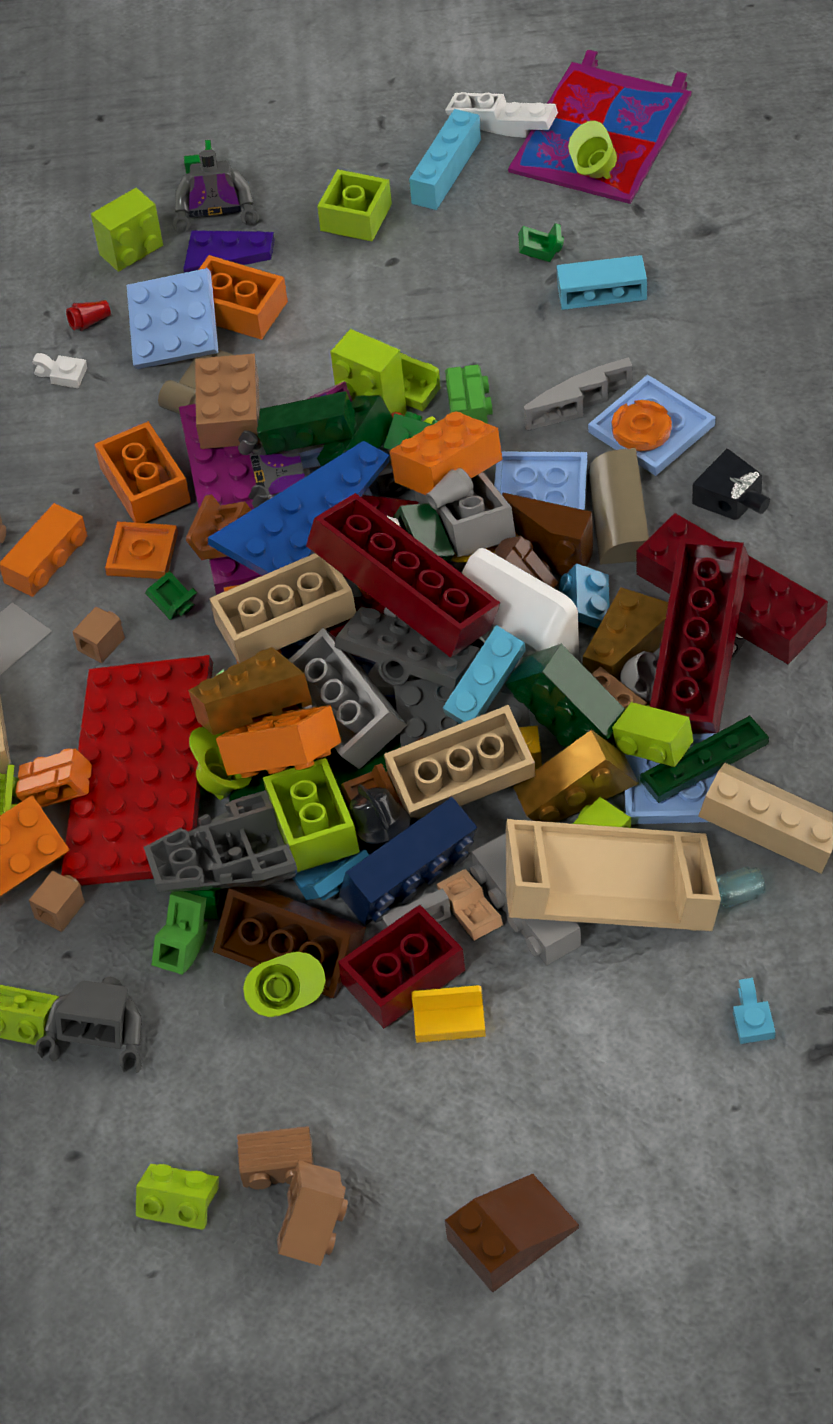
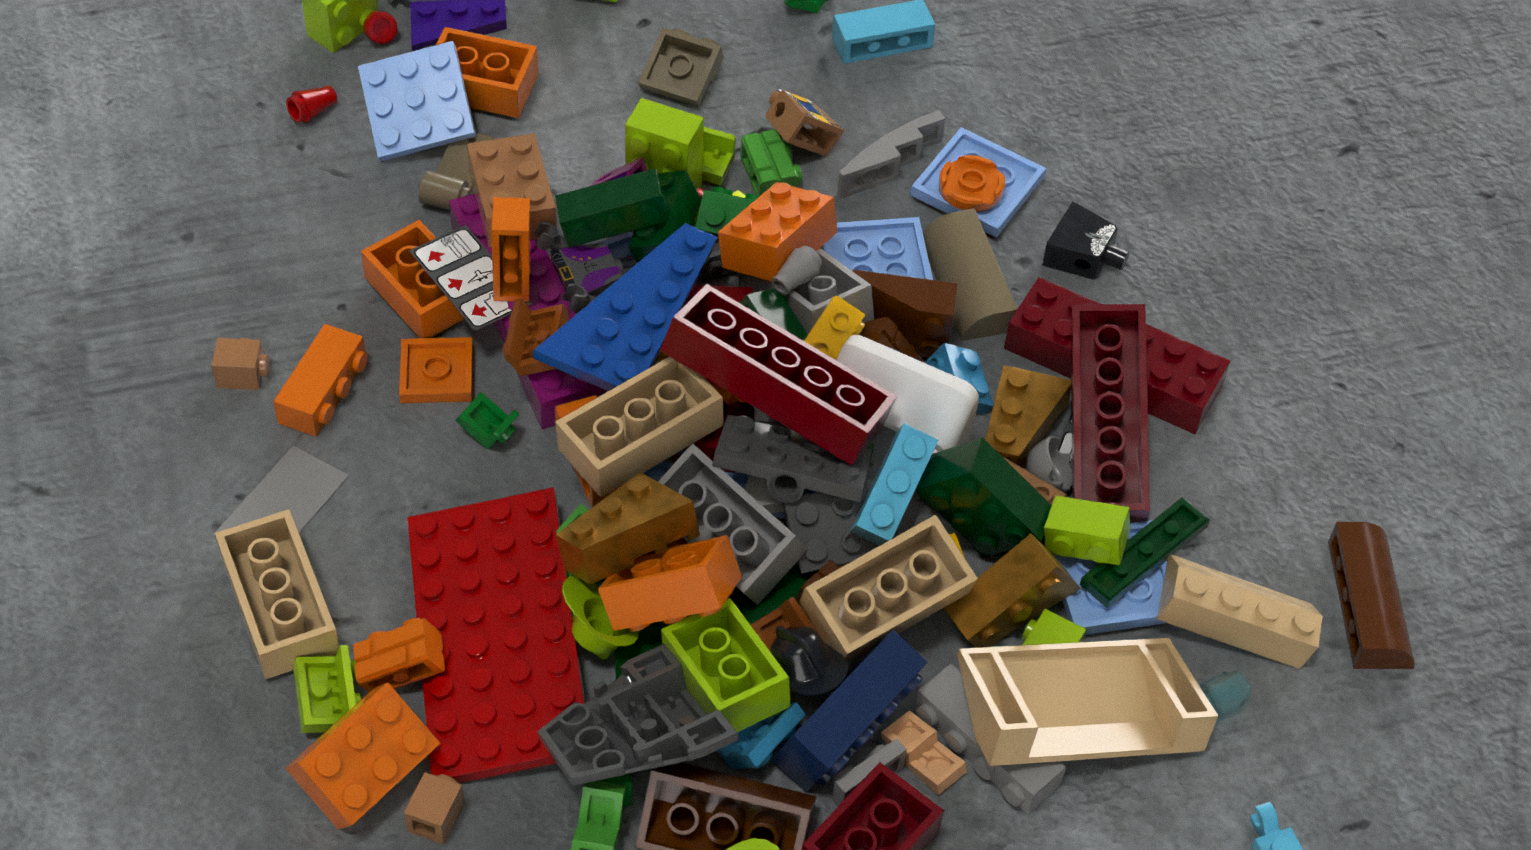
camera: 20 degrees left, 0 degrees up
(63, 371) = (295, 170): white plate -> none
(98, 634) = (410, 474): medium nougat brick -> none
(159, 251) = (380, 27): none -> red tile
(177, 472) = (464, 275): none -> sticker
(208, 451) = (511, 249): none -> orange brick
(411, 302) = (681, 66): none -> dark tan plate
(466, 539) = (835, 326): none -> yellow bracket
(494, 358) = (788, 117): none -> medium nougat torso

